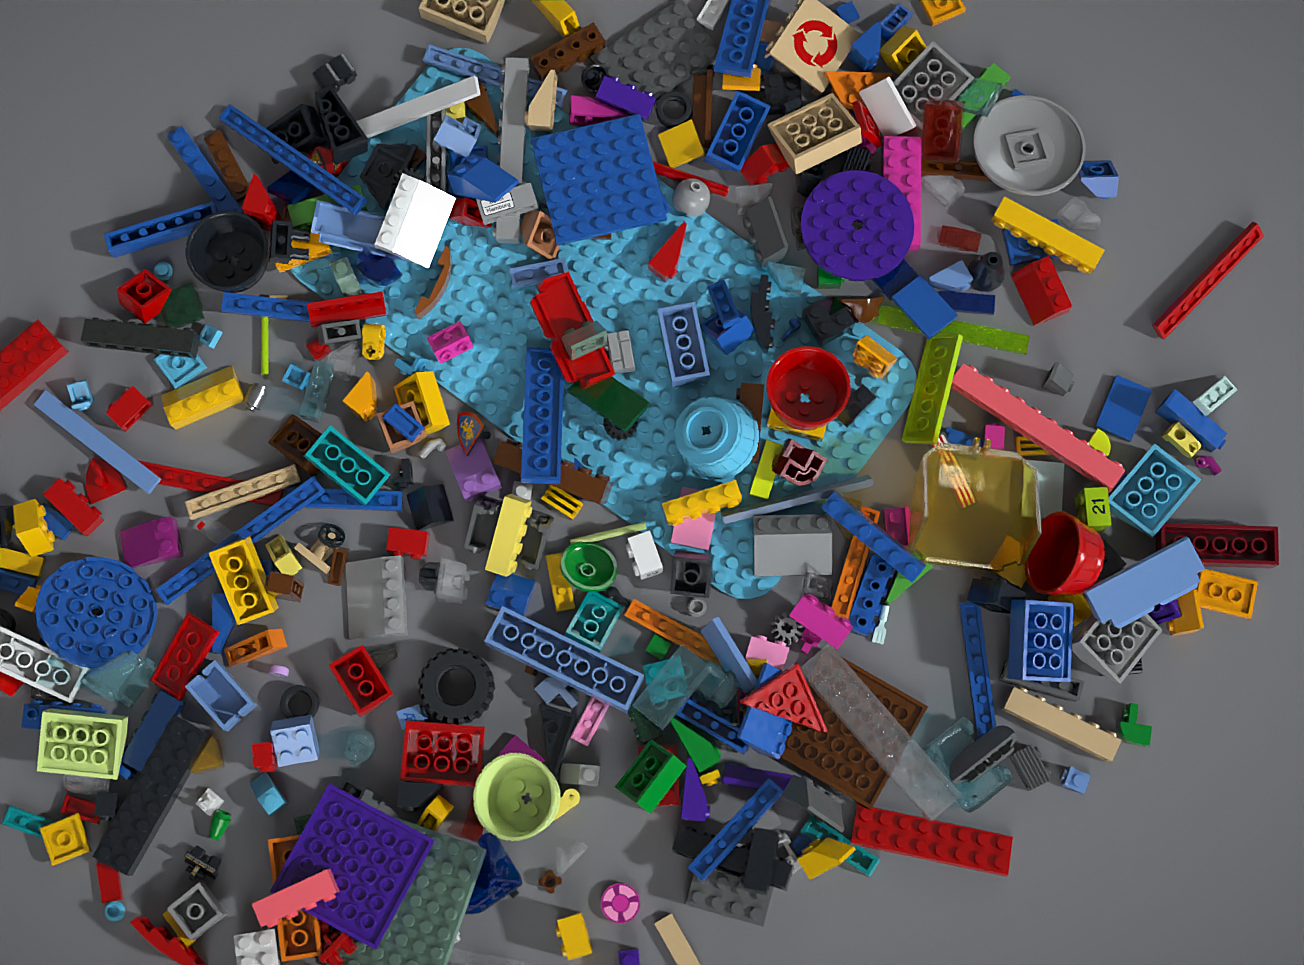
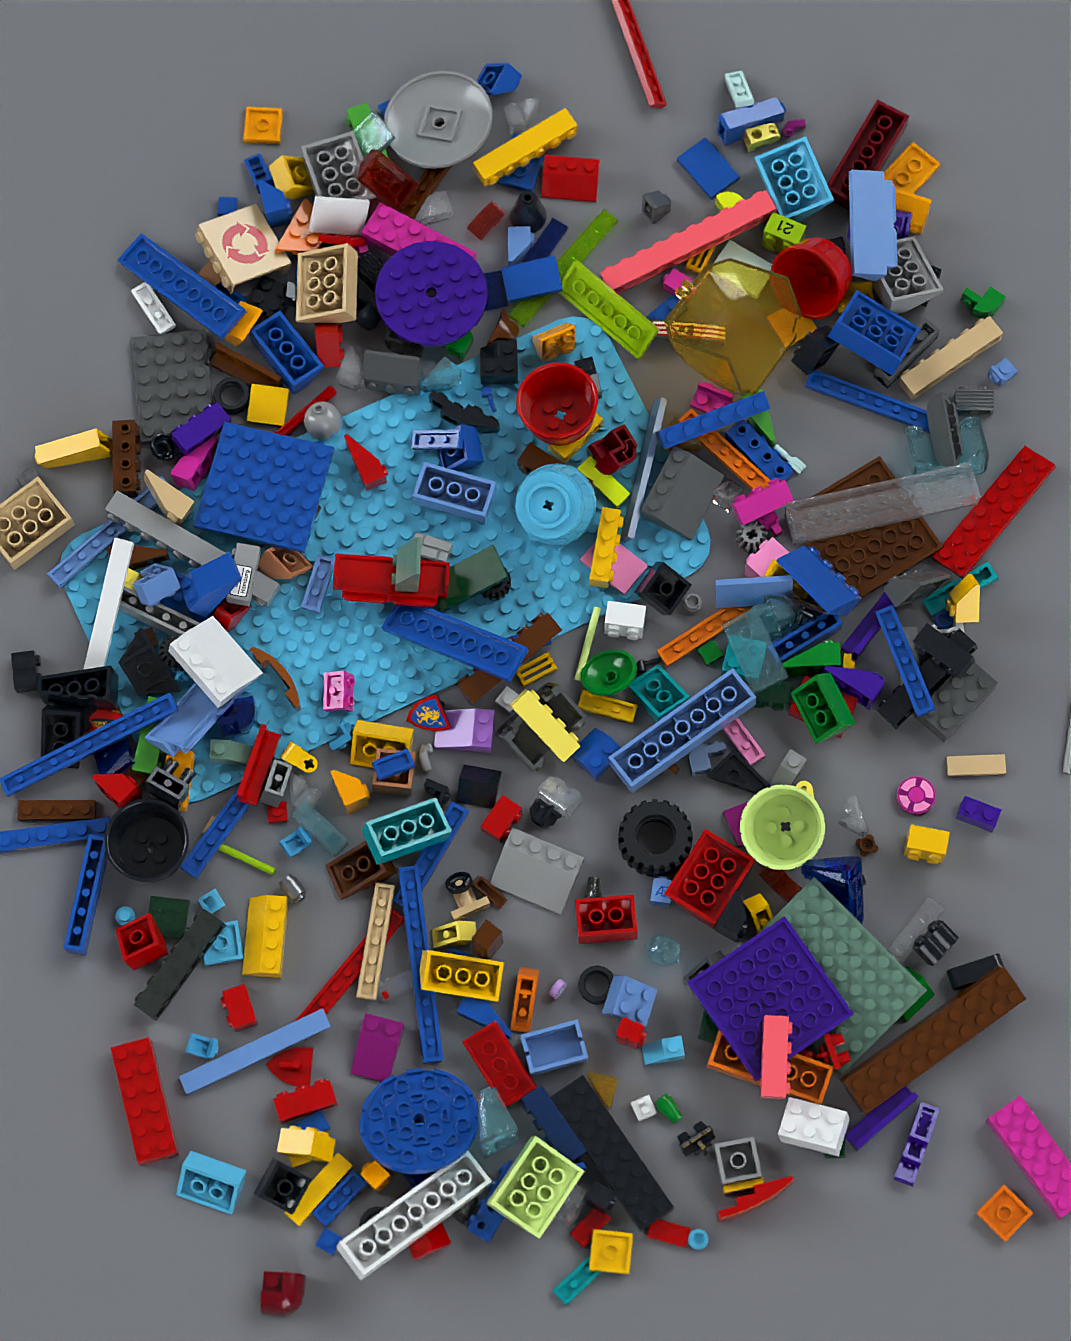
camera: 60 degrees left, 5 degrees down
(788, 698) = (817, 559): red tile -> none

